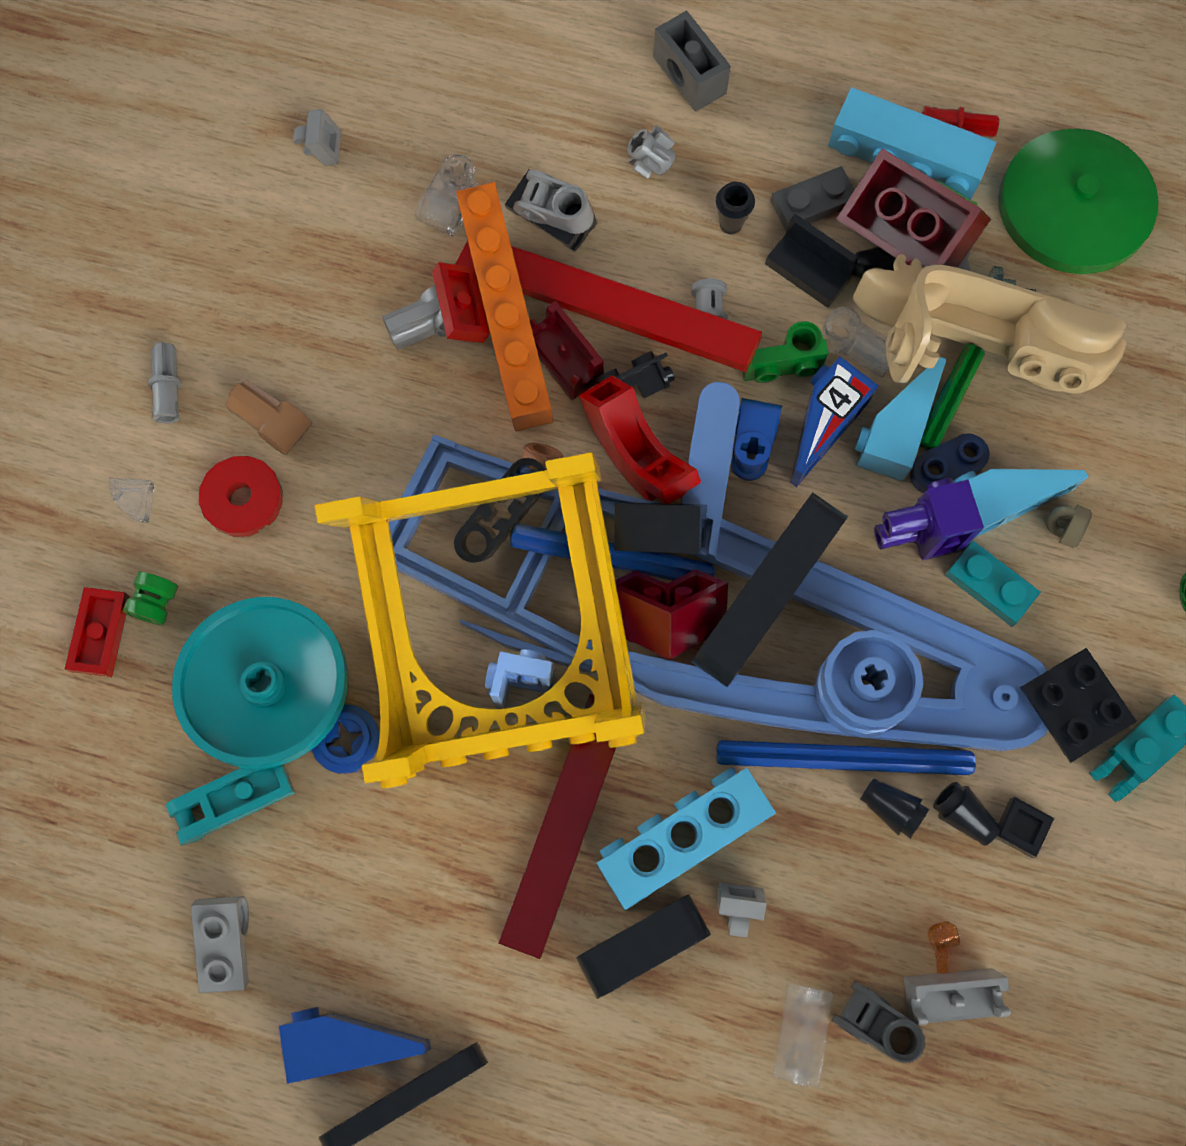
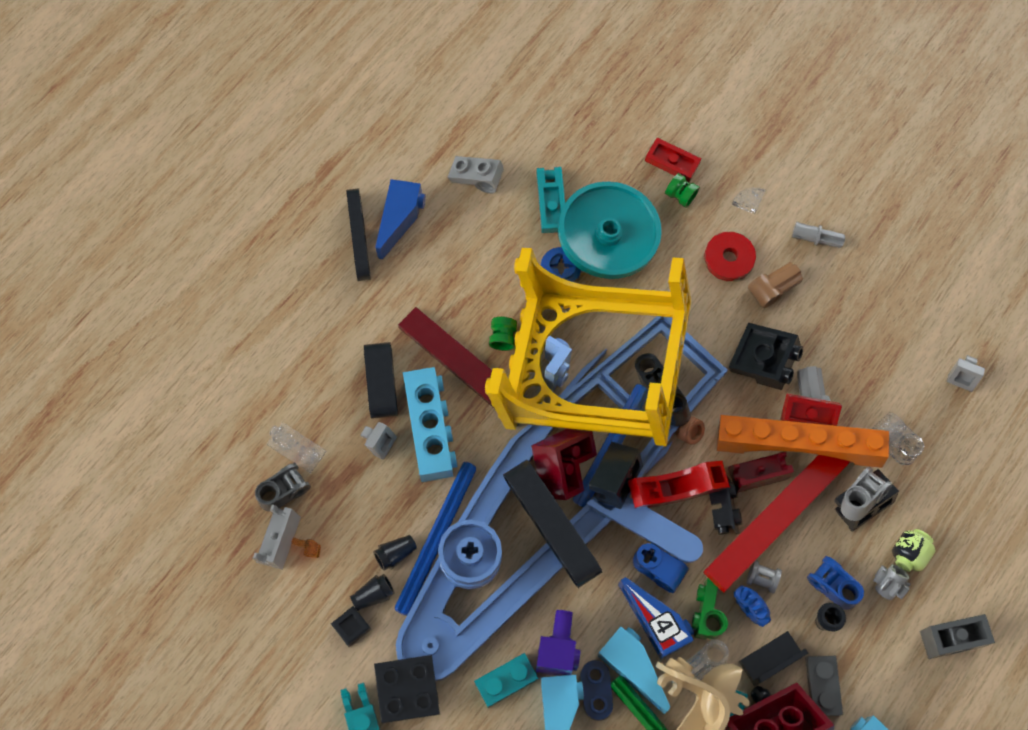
camera: 110 degrees right, 5 degrees down
(388, 393) = (767, 355): none -> black plate
(493, 783) = (503, 333): none -> green wheel
(598, 138) = (913, 550): none -> yellowish green head
(678, 219) = (835, 582): none -> blue piece
(759, 300) = (752, 605): none -> blue gear

